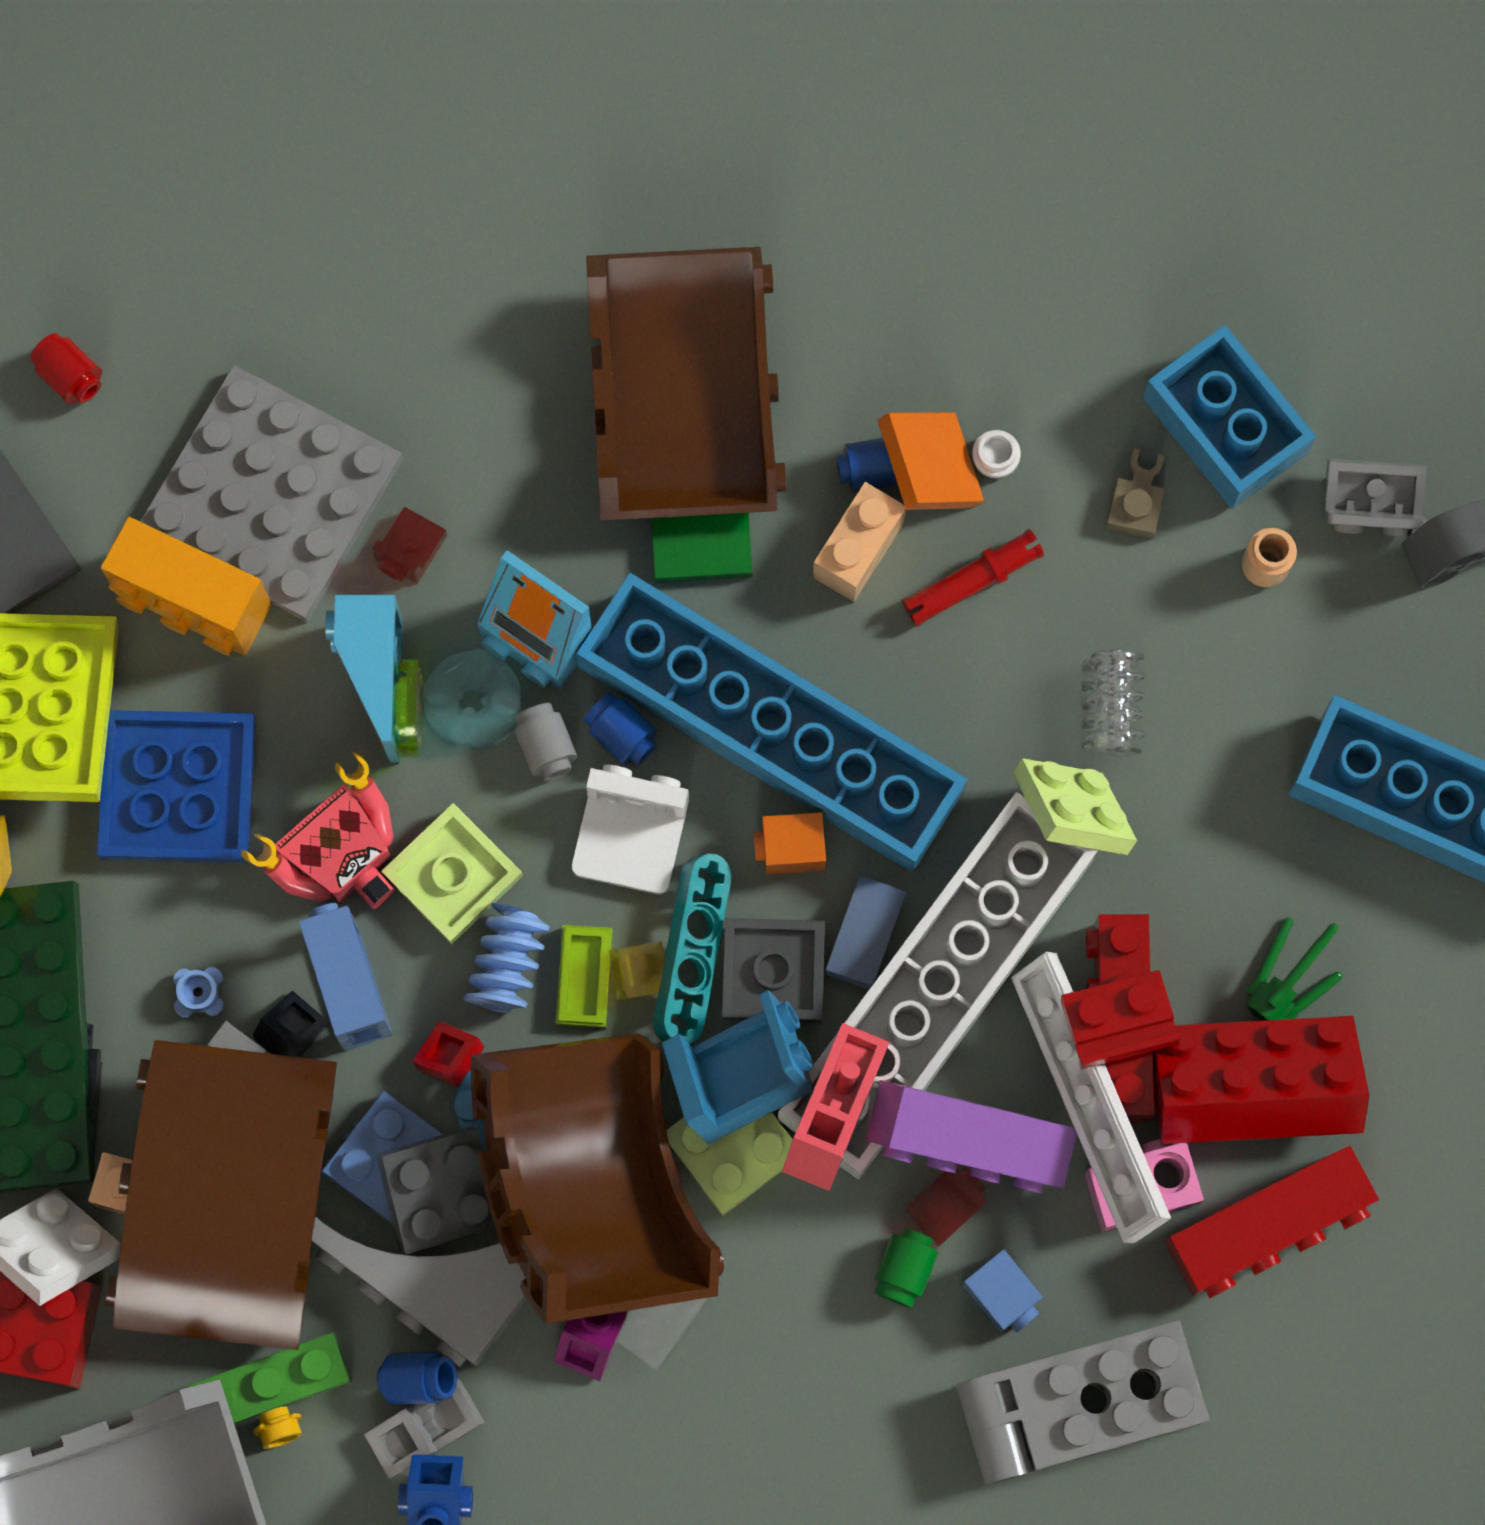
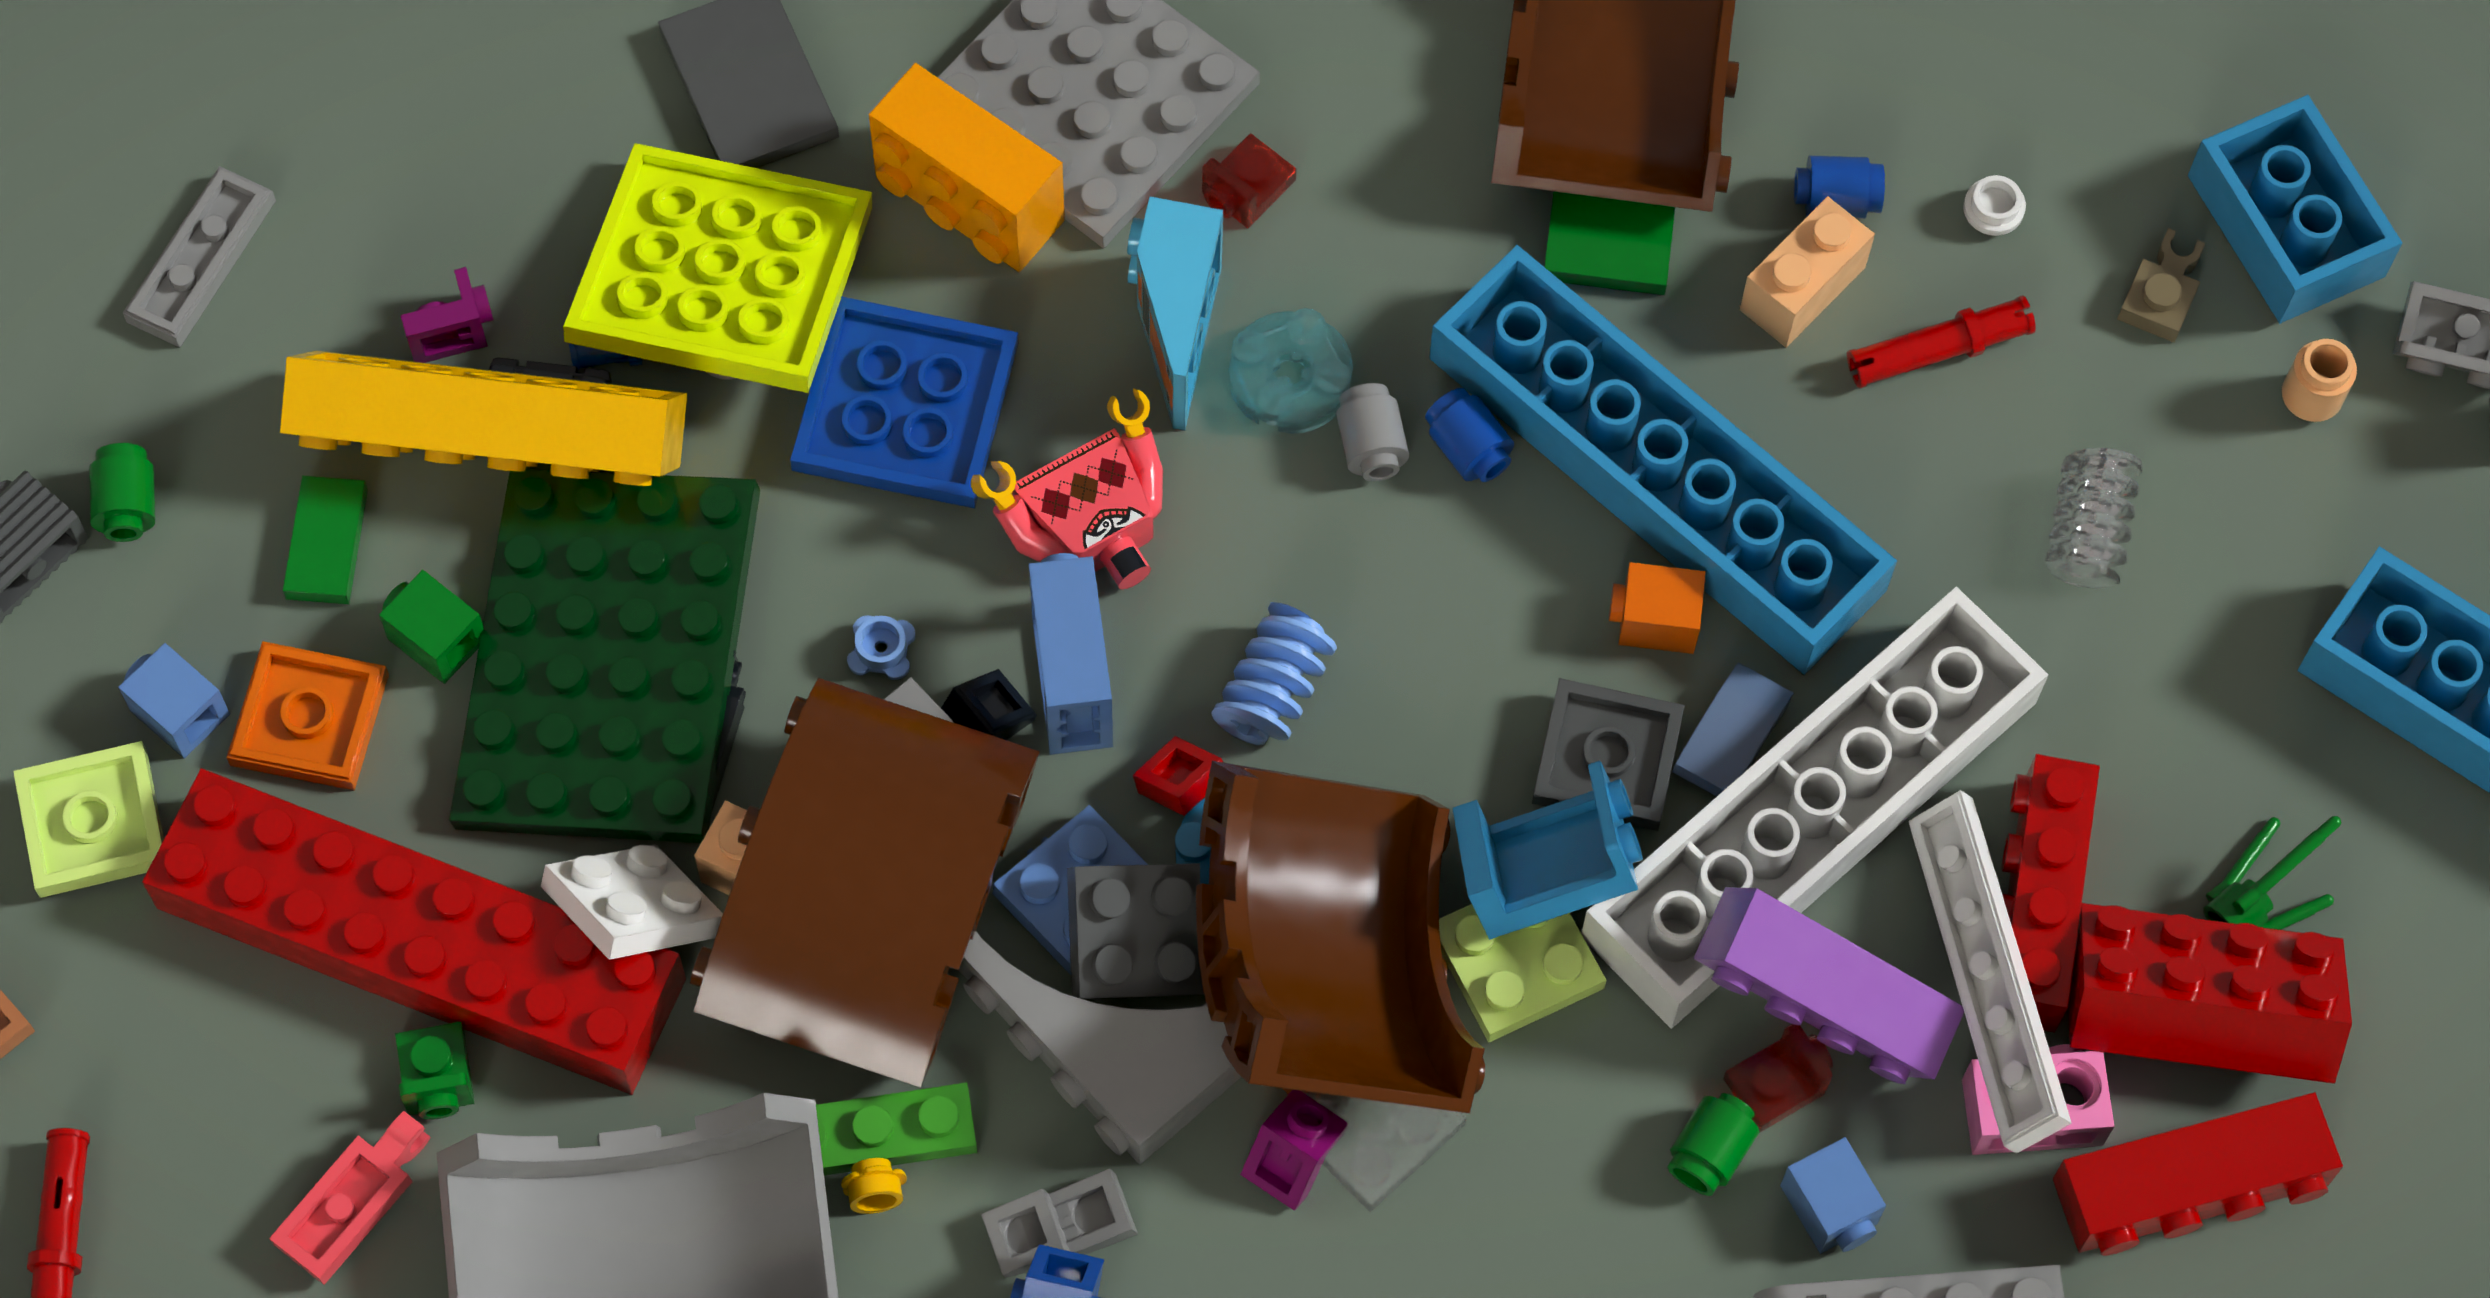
camera: 10 degrees right, 10 degrees down
(410, 707) = (1213, 355): clear neon green tile -> none
(416, 1378) = (1063, 1154): blue brick -> none
(452, 873) = (1226, 565): yellowish green plate -> none
(533, 623) = (1388, 279): medium azure slope -> none
(584, 977) = (1367, 720): lime tile -> none
(630, 829) = (1460, 551): white bracket -> none
(637, 969) = (1439, 722): clear yellow plate -> none
(684, 946) = (1504, 705): teal beam -> none
(835, 1107) = (1660, 913): coral slope -> none
(930, 460) = (1912, 192): orange tile -> none
(1074, 806) = (2027, 619): yellowish green plate -> none
(1120, 1019) = (2044, 877): red plate -> none

